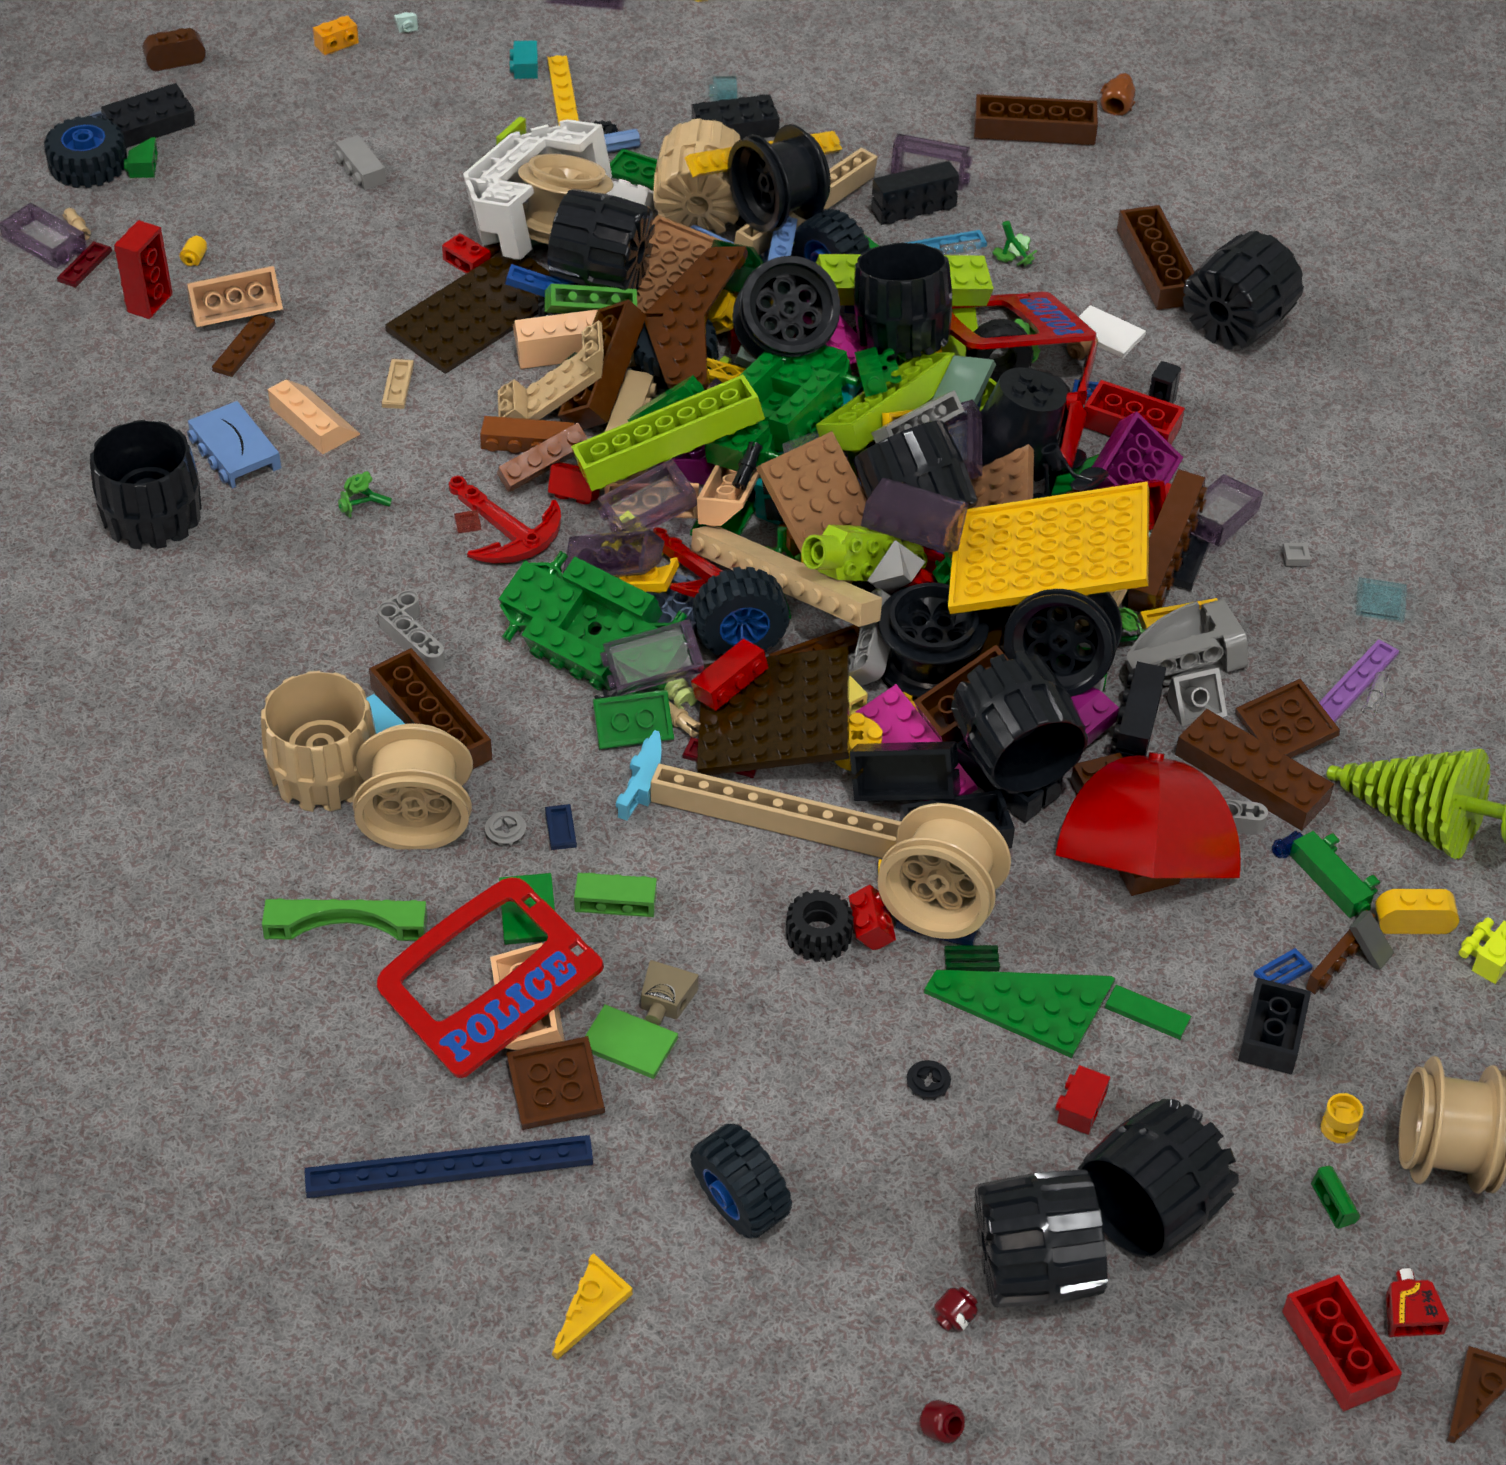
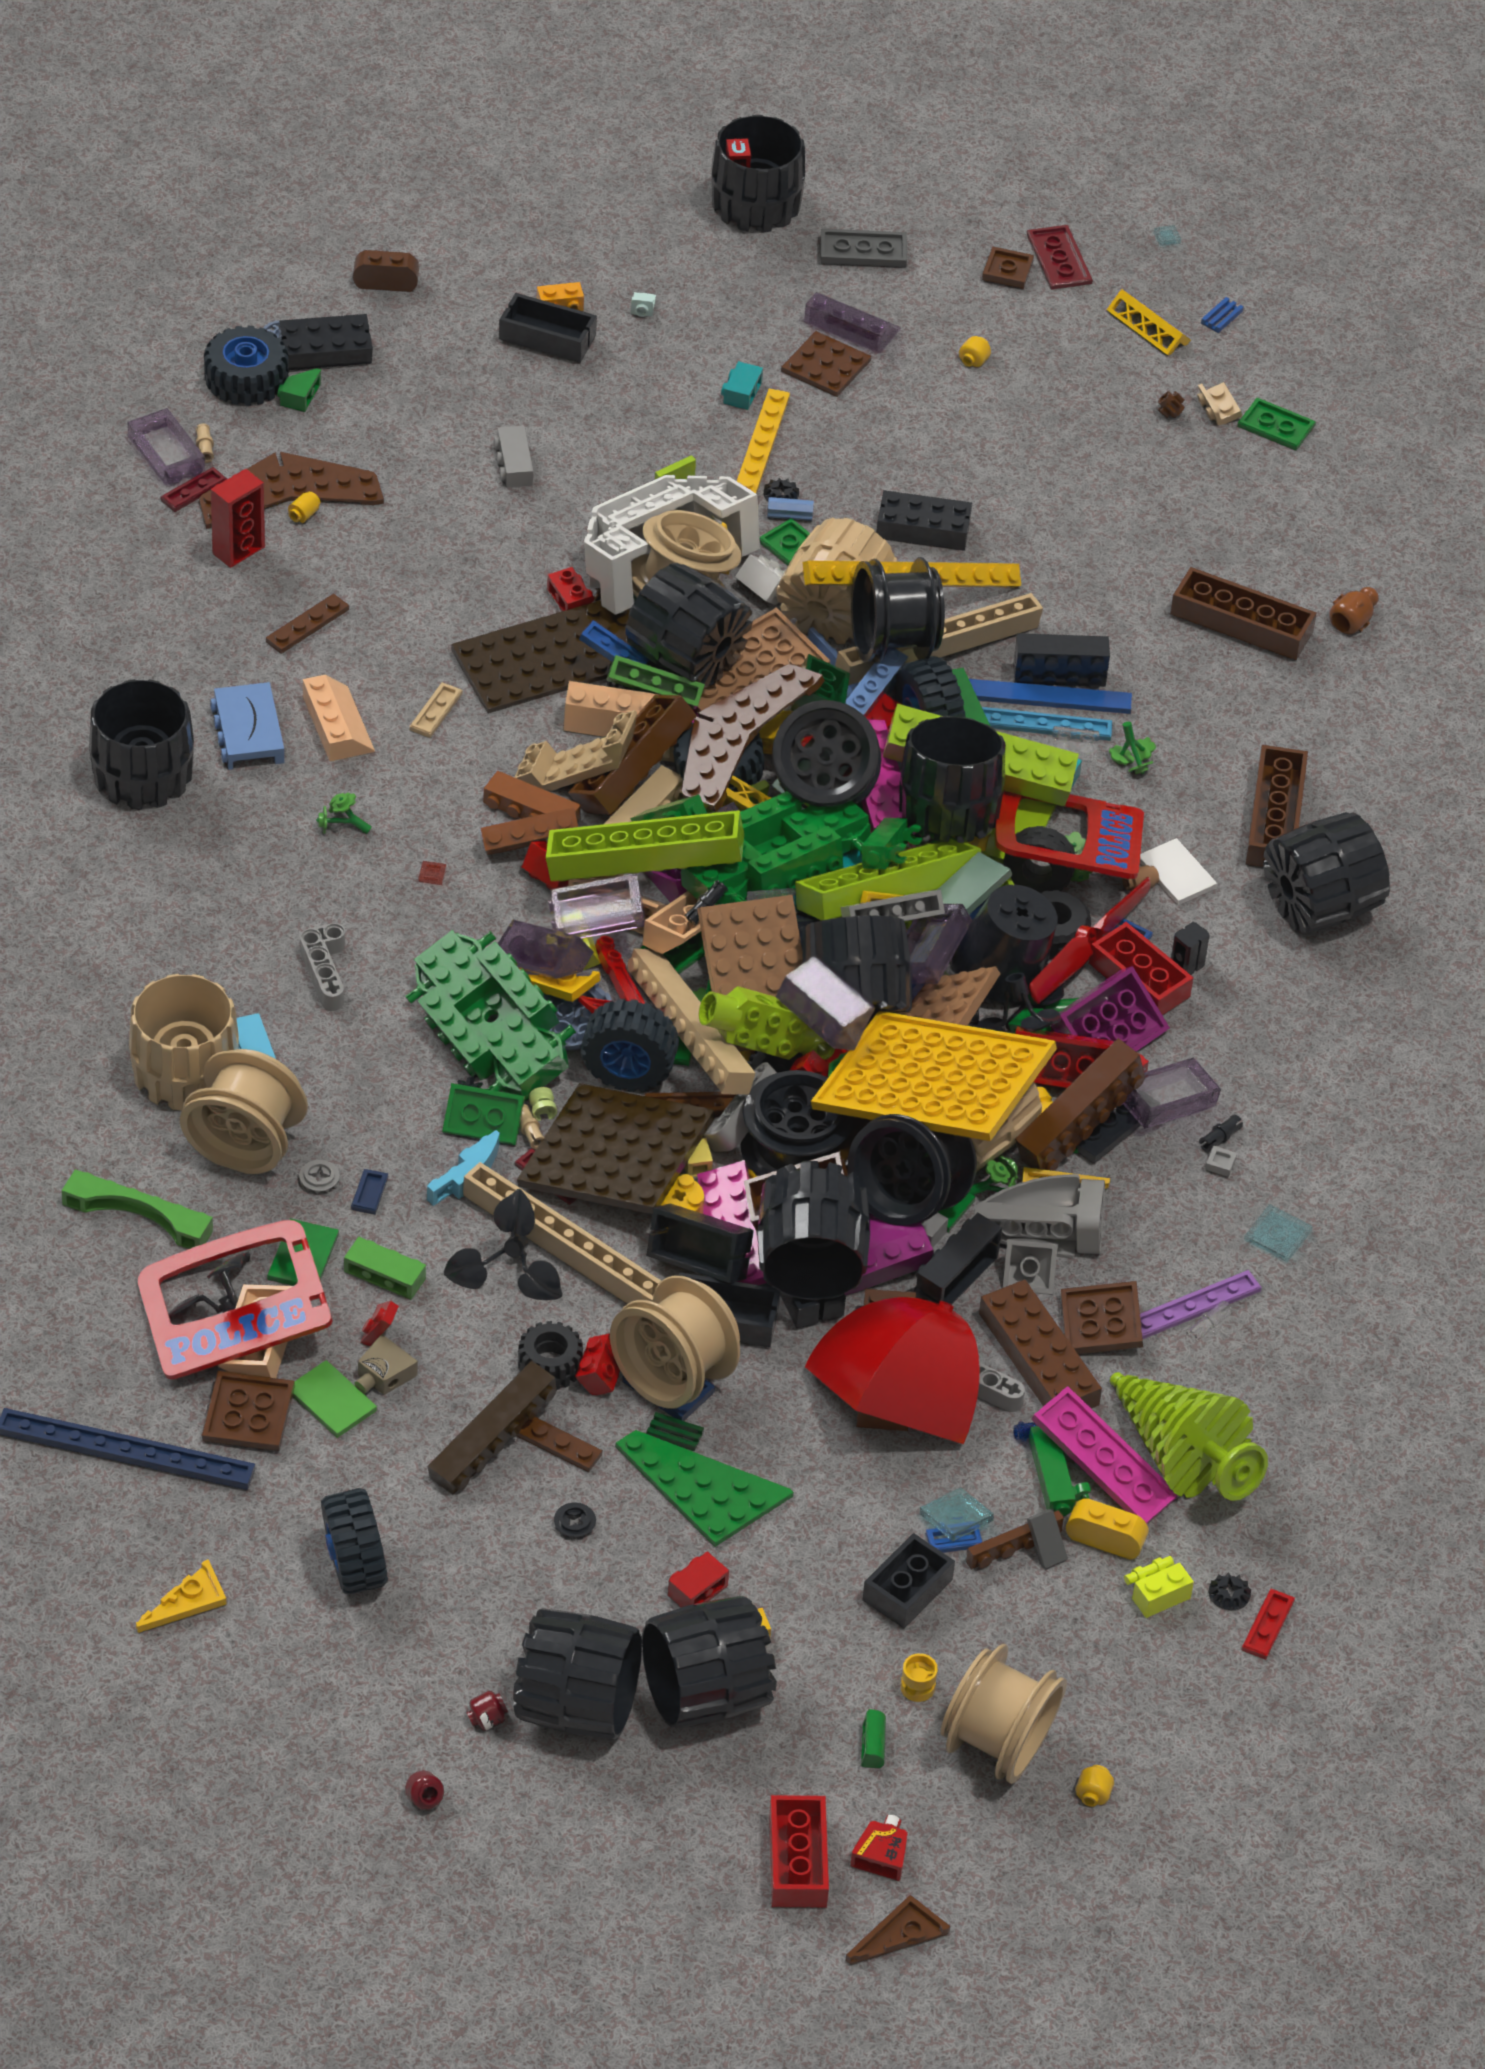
camera: 20 degrees right, 0 degrees up
(178, 228) = (305, 475): none -> reddish brown wing
(234, 296) = (316, 571): light nougat slope -> none
(336, 57) = (547, 327): none -> black piece
(421, 698) = (302, 1042): reddish brown brick -> none
(481, 980) = (229, 1300): none -> black plant
(525, 541) = (477, 909): red piece -> none
(583, 27) = (826, 363): none -> reddish brown plate
(640, 947) = (379, 1322): none -> red wing
(652, 658) = (519, 1061): window -> none
(723, 88) = (933, 481): clear light blue brick -> none
(724, 802) = (515, 1216): none -> black plant
(729, 674) = (590, 1100): red brick -> none
(805, 1016) = (492, 1428): none -> dark brown brick
(860, 1007) = (560, 1443): none -> reddish brown plate
(895, 569) = (788, 1048): light grey slope -> none
(917, 152) = (1085, 617): clear purple window -> none
(927, 224) = (1052, 696): none -> blue tile
(1148, 1012) = (806, 1531): green tile -> none
(1274, 946) = (956, 1514): none -> clear light blue tile
(1280, 531) = (1221, 1133): none -> black pin
(1373, 844) = (1104, 1455): none -> dark pink plate

